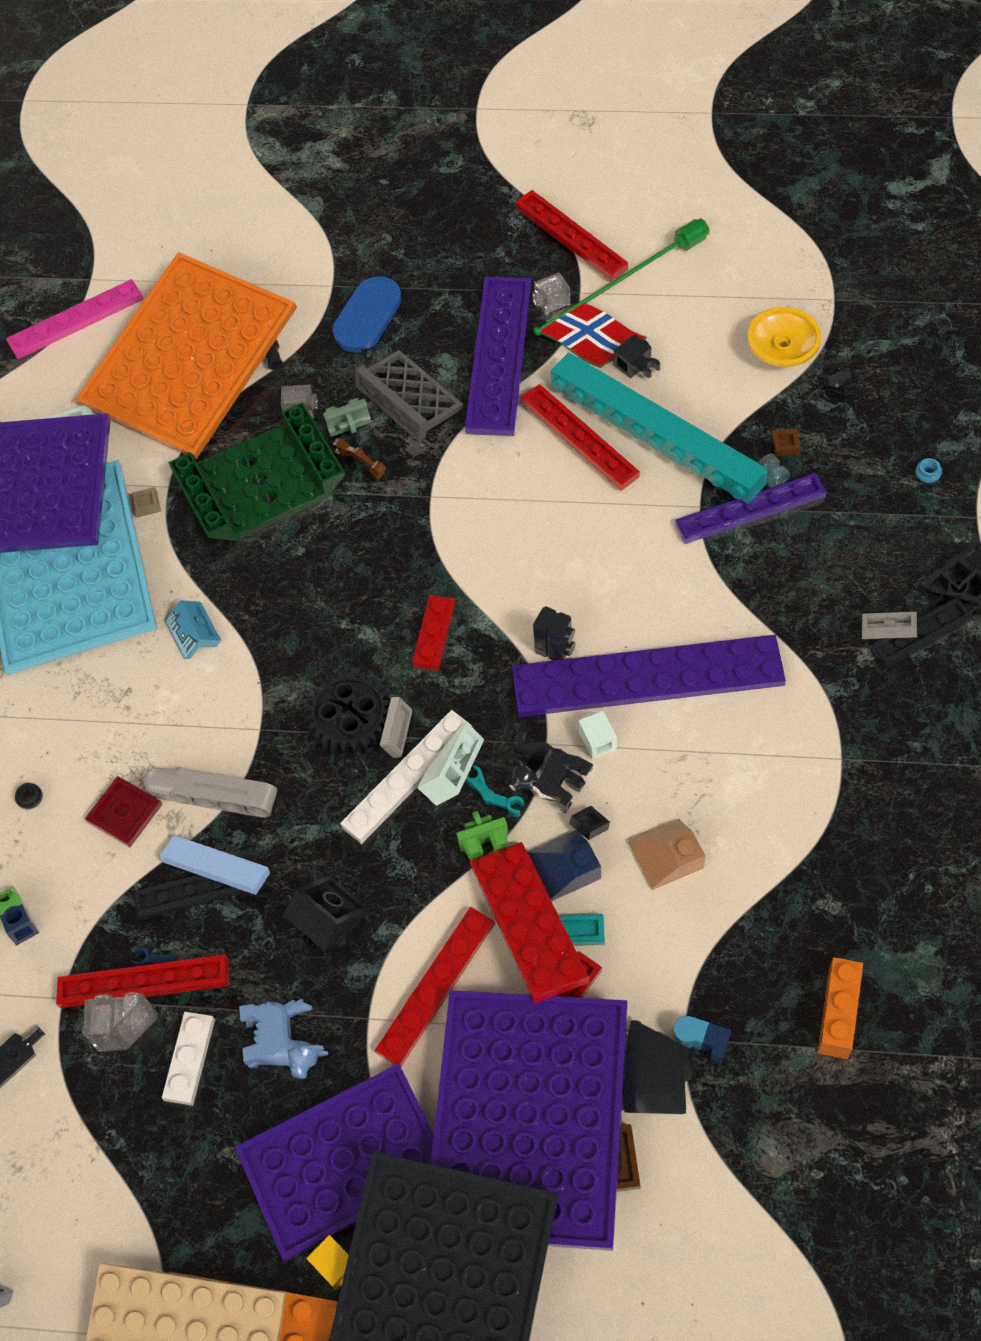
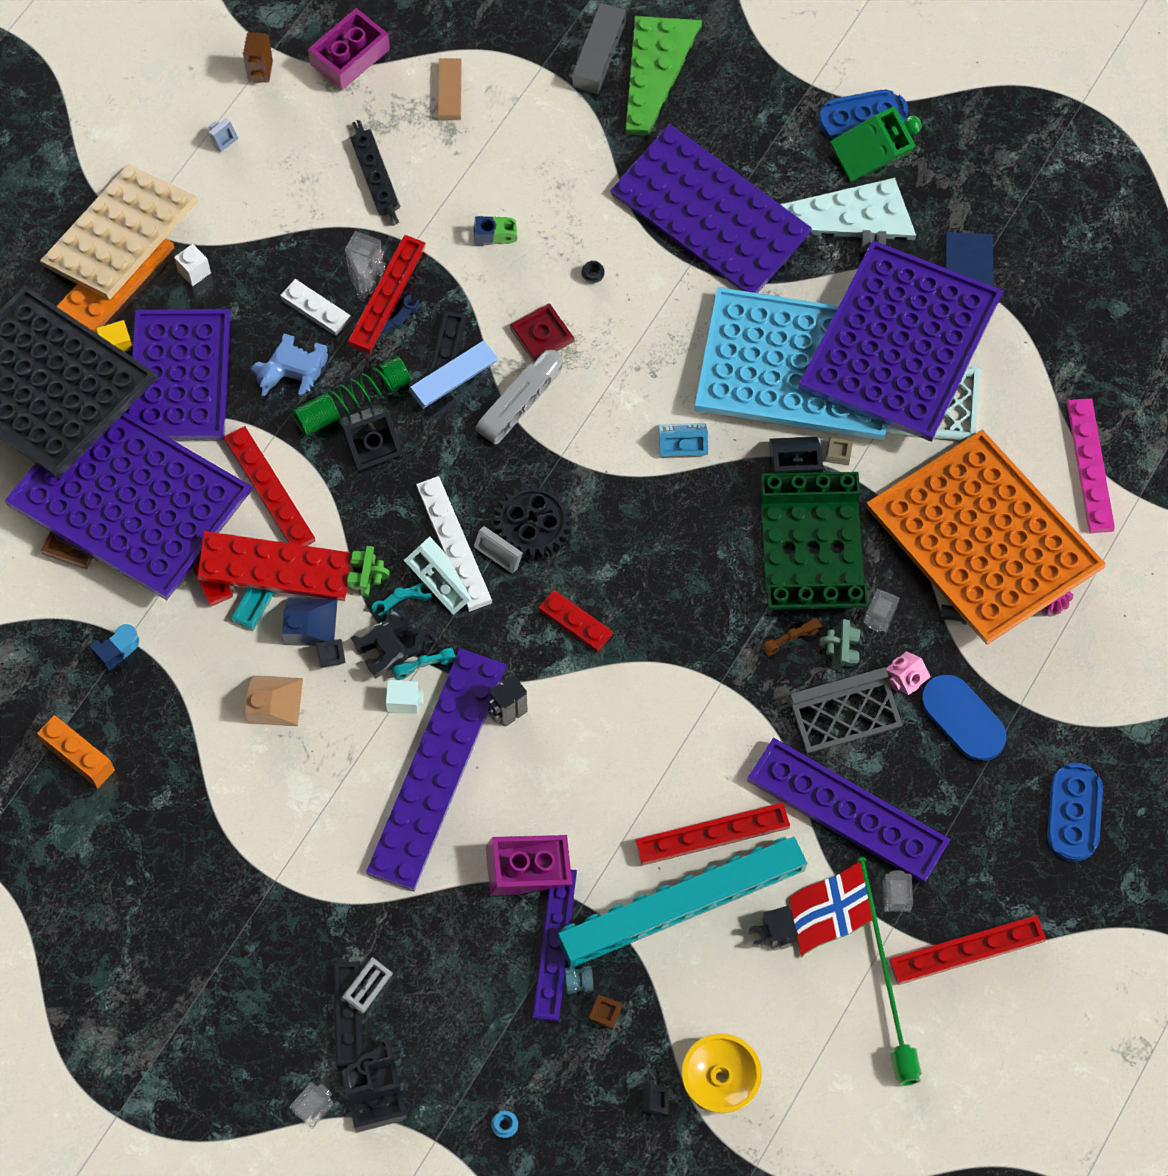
camera: 110 degrees right, 5 degrees up
(172, 524) = (796, 455): none -> black slope
(192, 1225) = (192, 265): none -> white brick
(317, 973) = (322, 410): none -> green piece
(350, 357) = (907, 673): none -> bright pink brick
(409, 217) = (1075, 812): none -> blue tile
(535, 722) = (404, 670): none -> teal piece
(655, 1072) = (111, 600): black slope -> none
(699, 553) = (527, 864): none -> magenta slope

